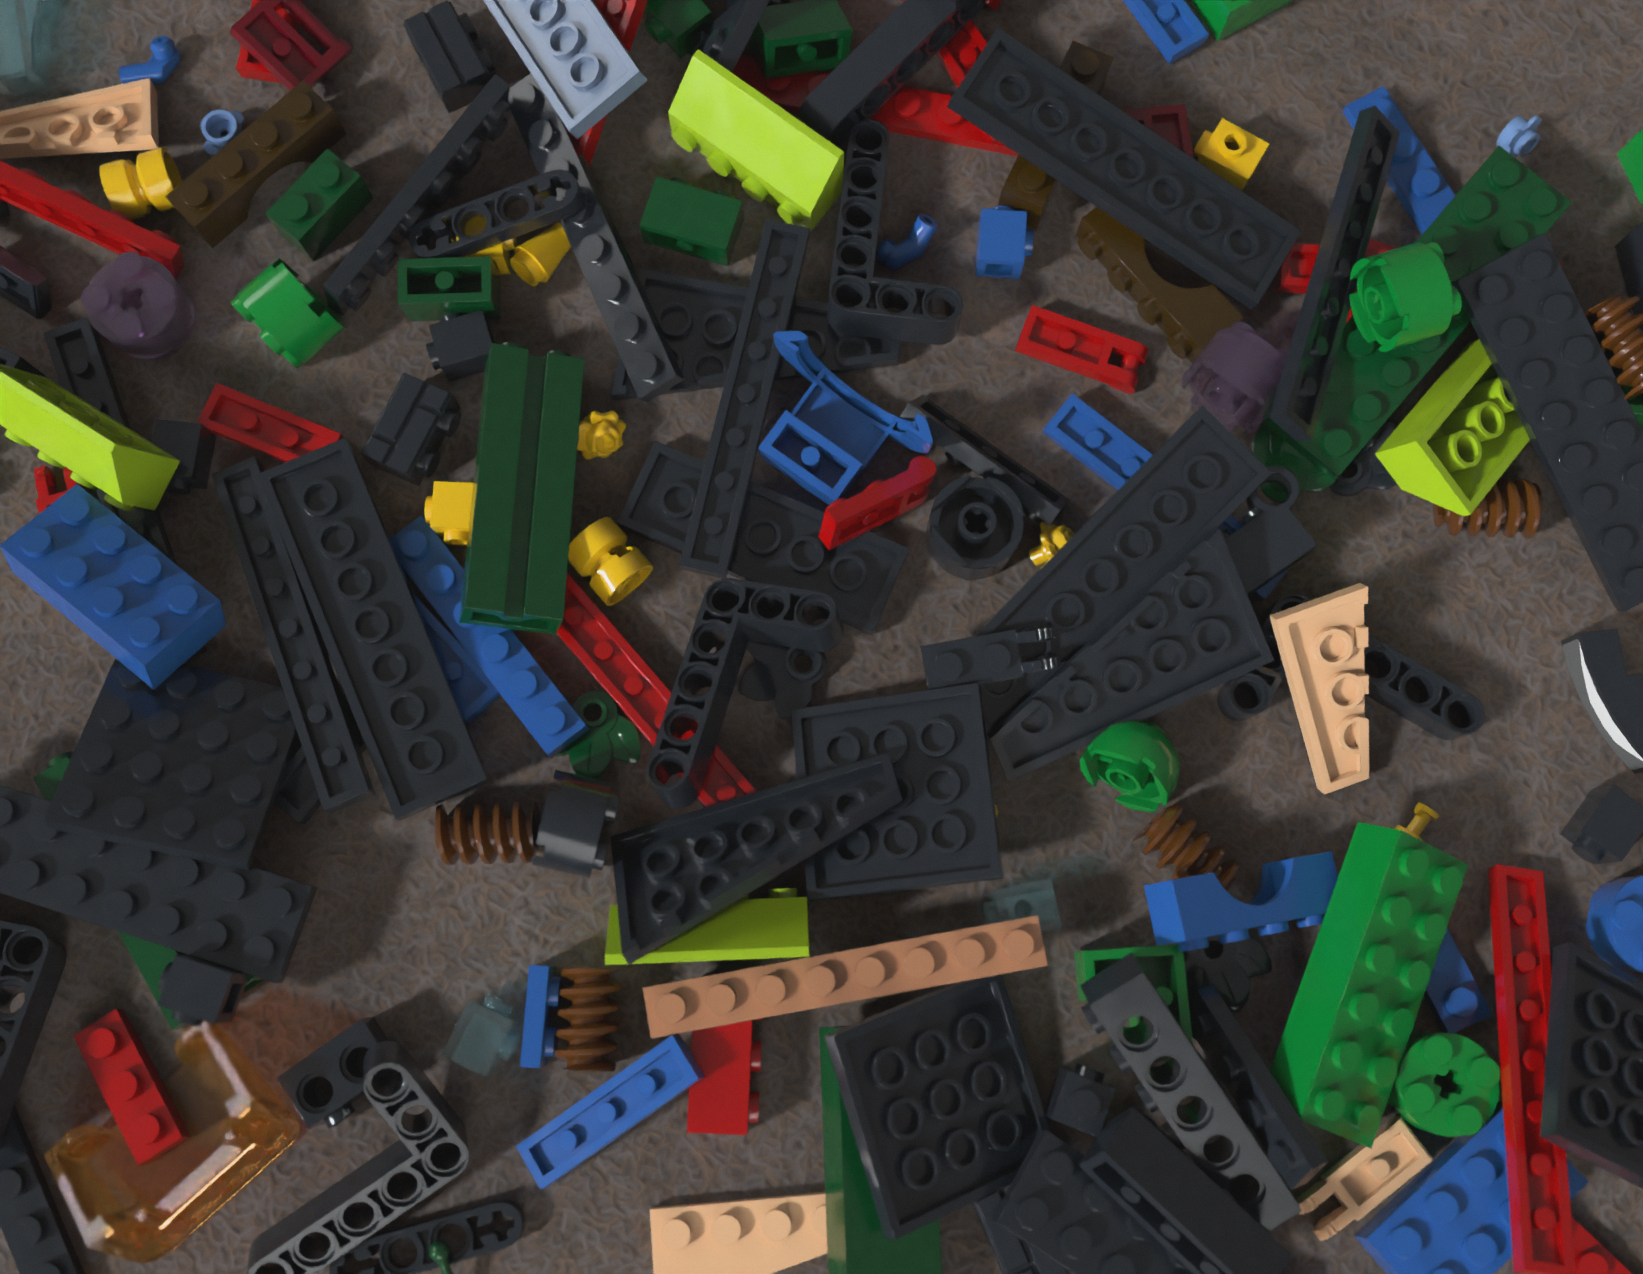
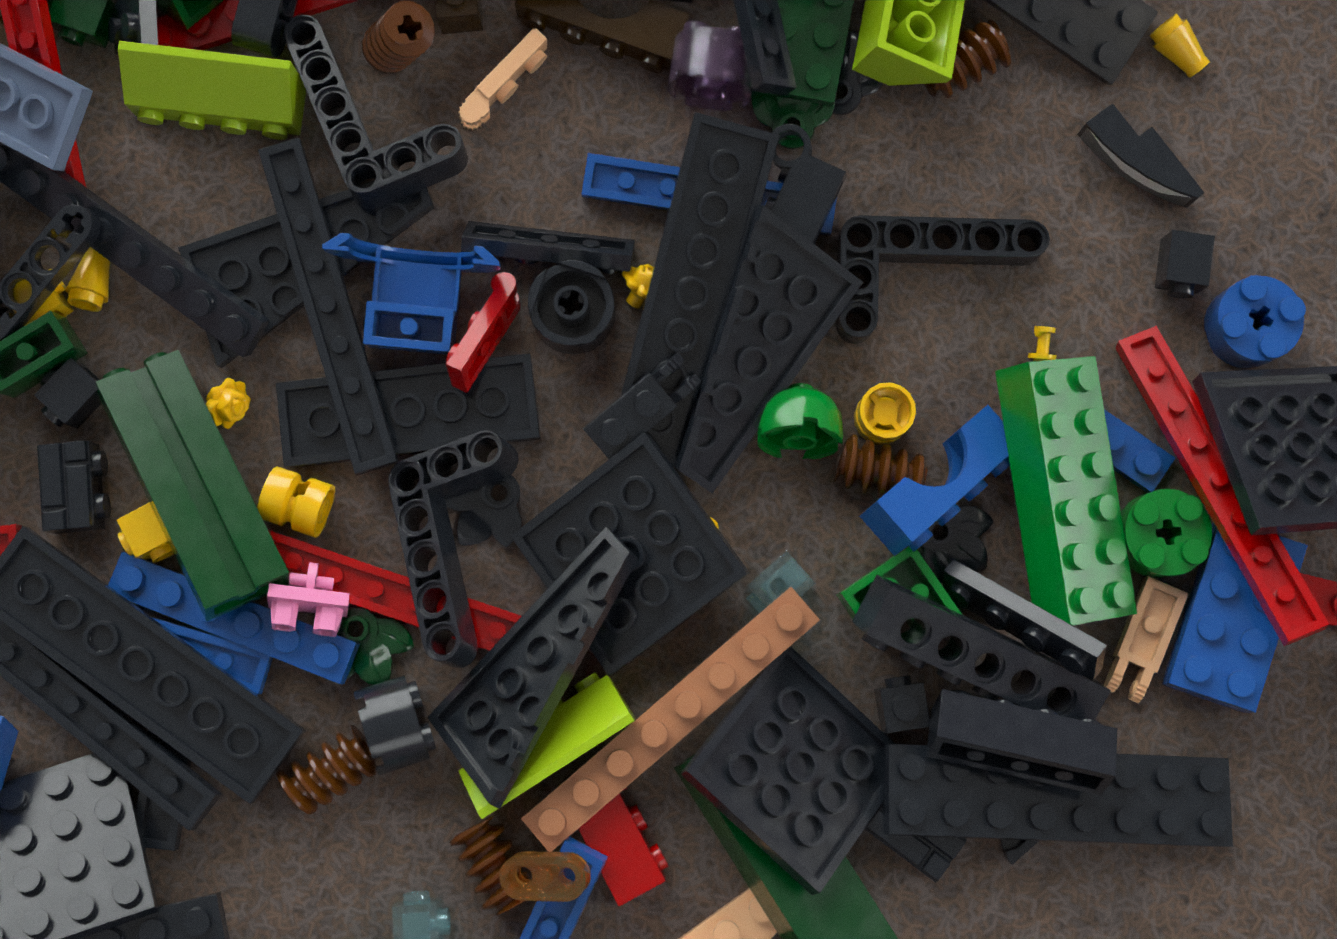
camera: 30 degrees left, 5 degrees up
(538, 1034) = (462, 902): blue plate -> none
(568, 654) = (327, 605): none -> bright pink hips
(635, 1061) = (547, 876): none -> clear orange plate
(692, 220) = (197, 182): dark green brick -> none
(911, 248) = (390, 105): blue arm -> none
(956, 188) = (398, 37): none -> reddish brown piece
(1002, 242) = (461, 57): blue brick -> none
(1027, 283) = (501, 82): none -> light nougat hinge
(1081, 348) = (574, 110): red plate -> none
(1223, 800) = (884, 413): none -> yellow wheel
(1328, 682) = (910, 270): light nougat wing -> none

